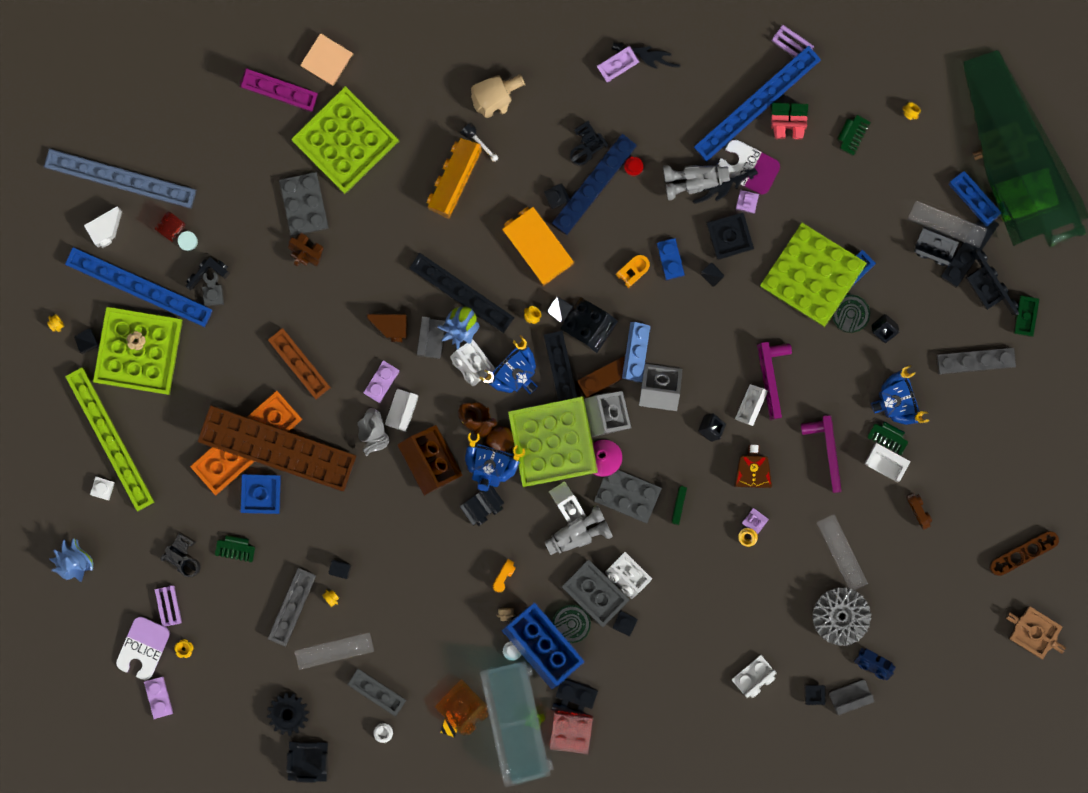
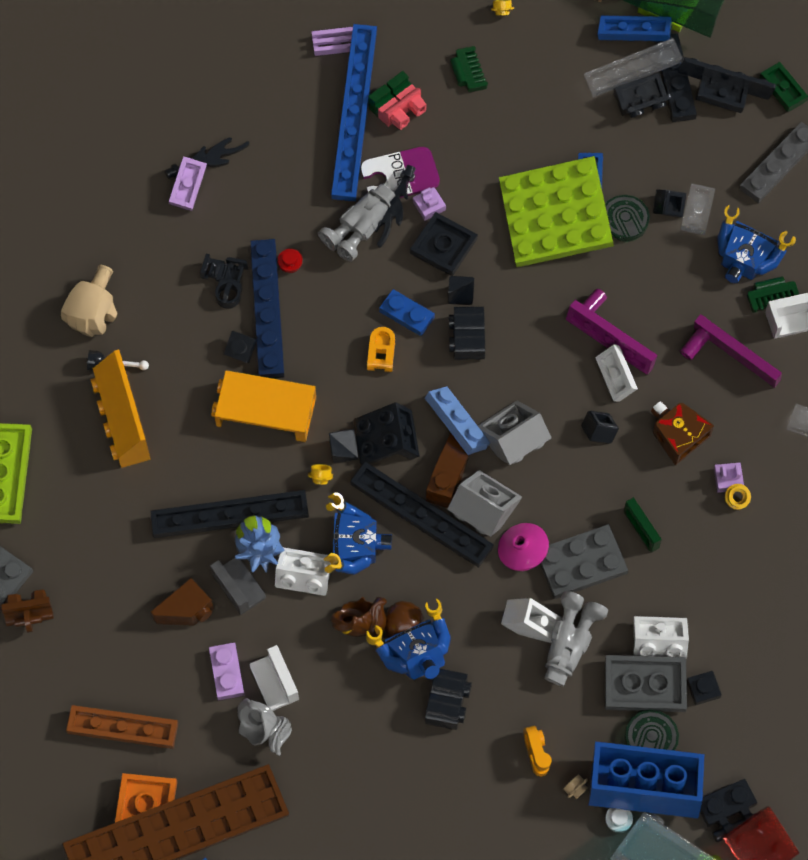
camera: 45 degrees left, 20 degrees down
(429, 460) = (349, 702): reddish brown slope -> none
(554, 441) = (462, 568): lime plate -> none
(691, 305) = (468, 333): none -> black brick
(897, 347) = (698, 209): none -> clear plate

